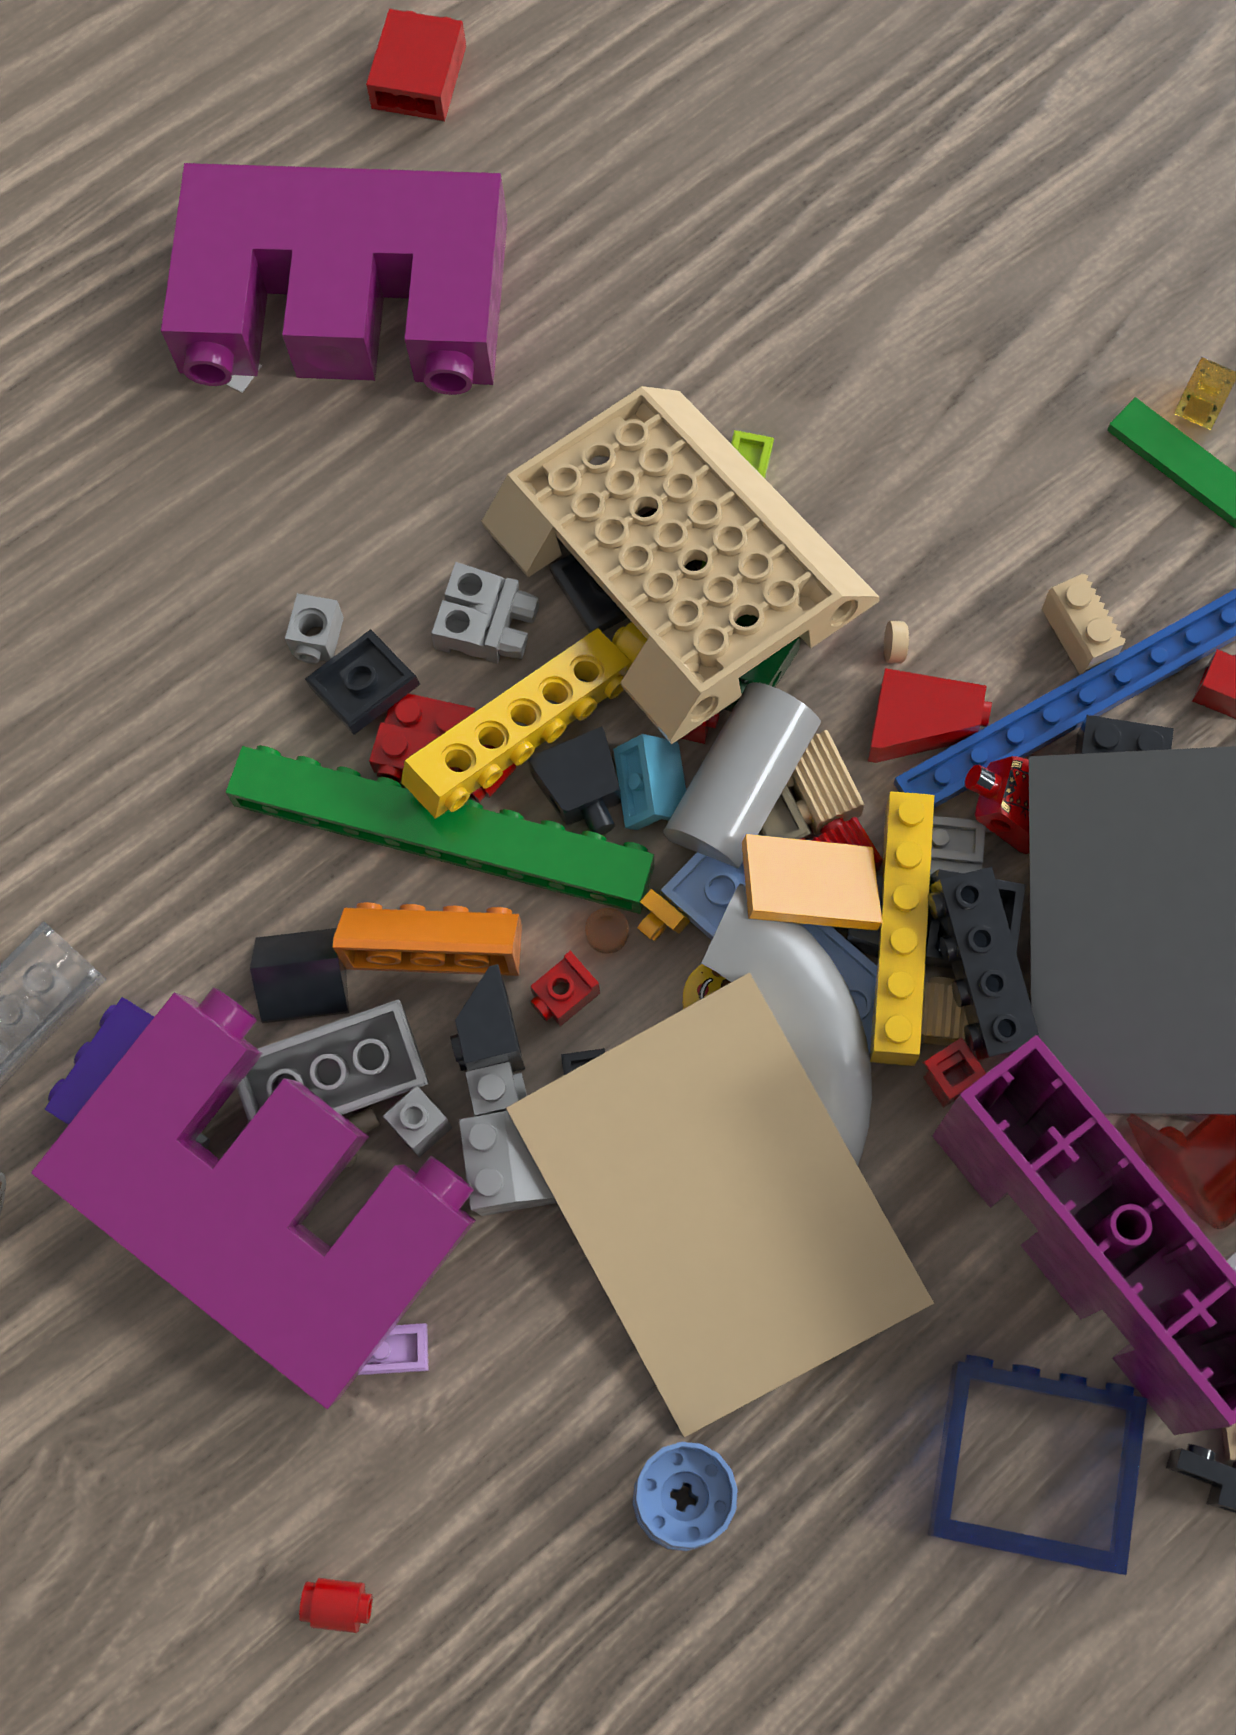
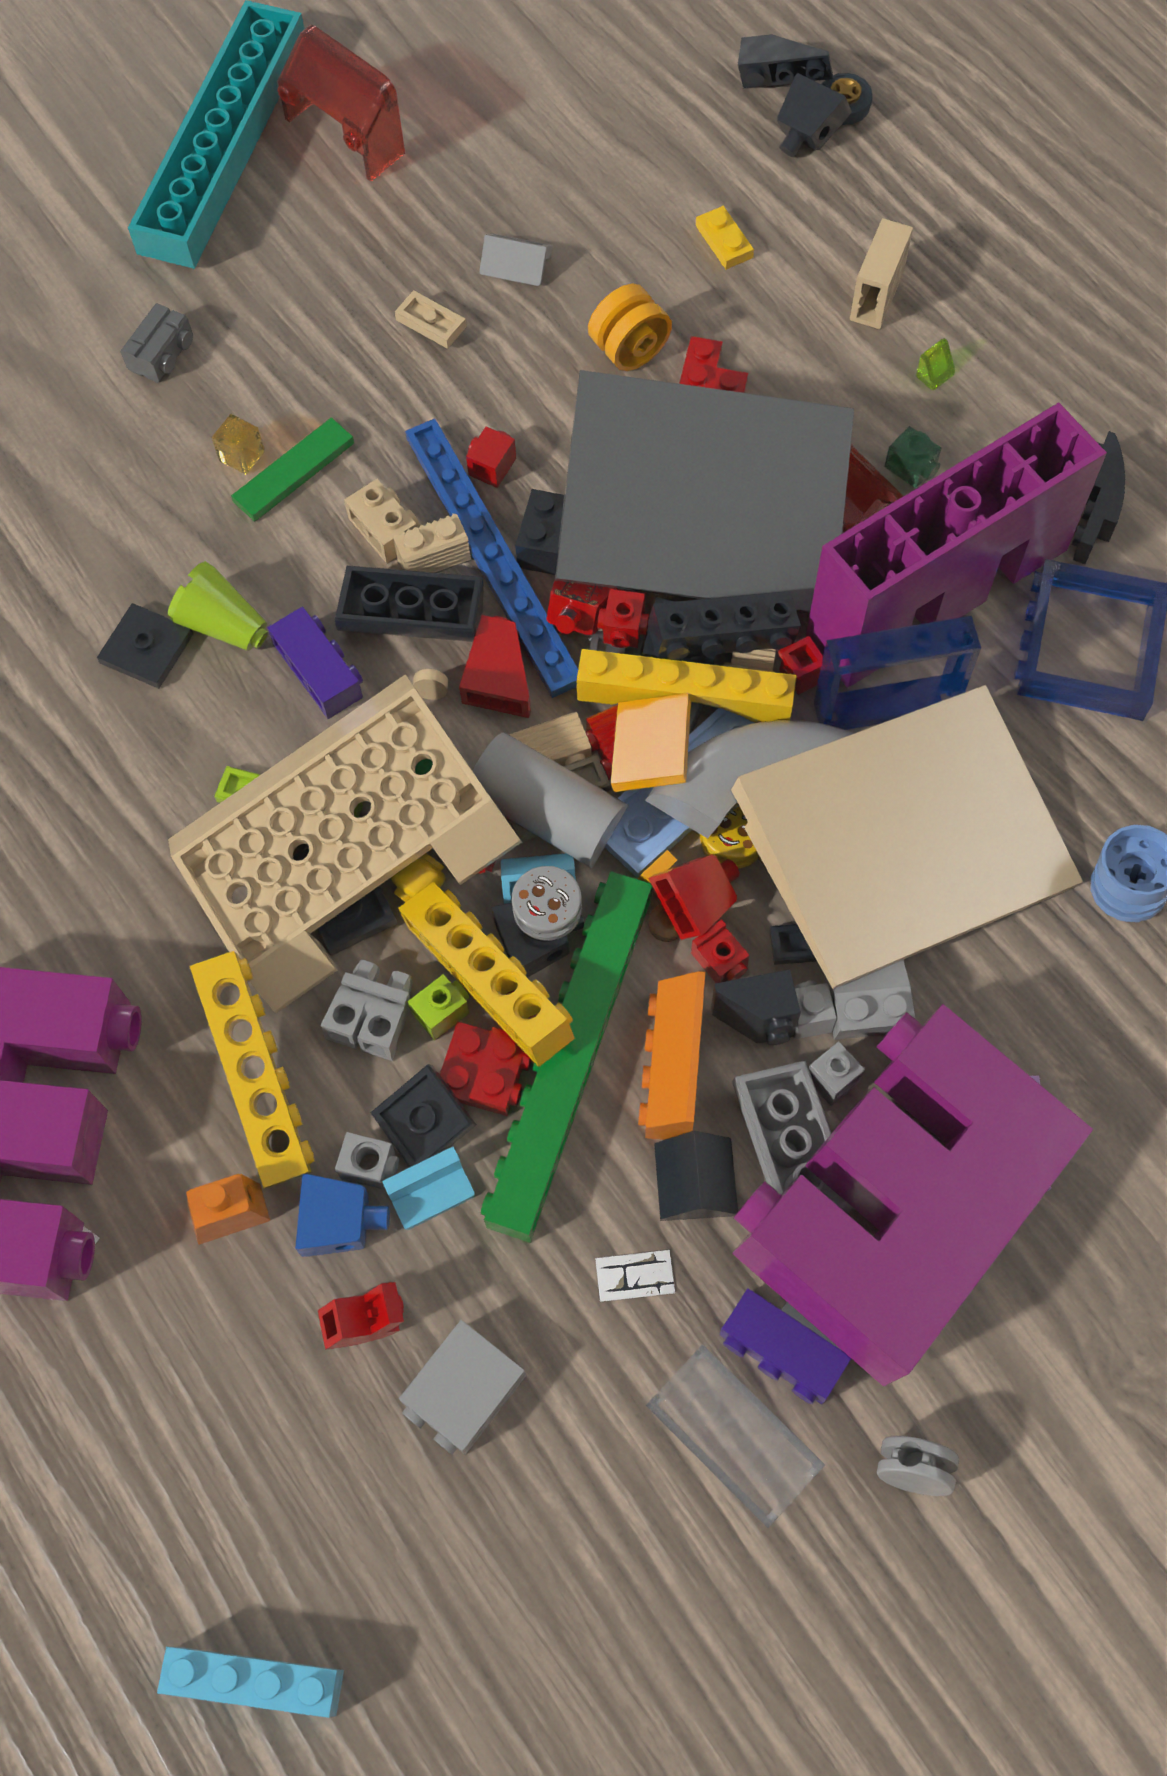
camera: 90 degrees left, 5 degrees down
(76, 744) = (461, 1389): none -> light grey brick
(147, 639) = (362, 1317): none -> red brick
(197, 915) = (635, 1275): none -> white sticker
(255, 603) = (335, 1216): none -> blue torso
(258, 490) = (226, 1208): none -> orange torso
(287, 697) = (429, 1188): none -> medium azure panel
(379, 495) = (210, 979): none -> yellow brick
(484, 679) = (439, 1006): none -> lime brick
(602, 780) = (547, 903): none -> light grey head
(634, 955) = (696, 893): none -> red torso
(913, 514) = (316, 661): none -> dark purple brick
(923, 336) = (145, 645): none -> black plate
(930, 1177) = (888, 648): none -> clear blue window
(968, 397) = (217, 610): none -> lime cone
(991, 843) = (623, 619): none -> red brick
(997, 607) = (410, 603): none -> black brick
(1123, 563) = (379, 517): none -> tan brick

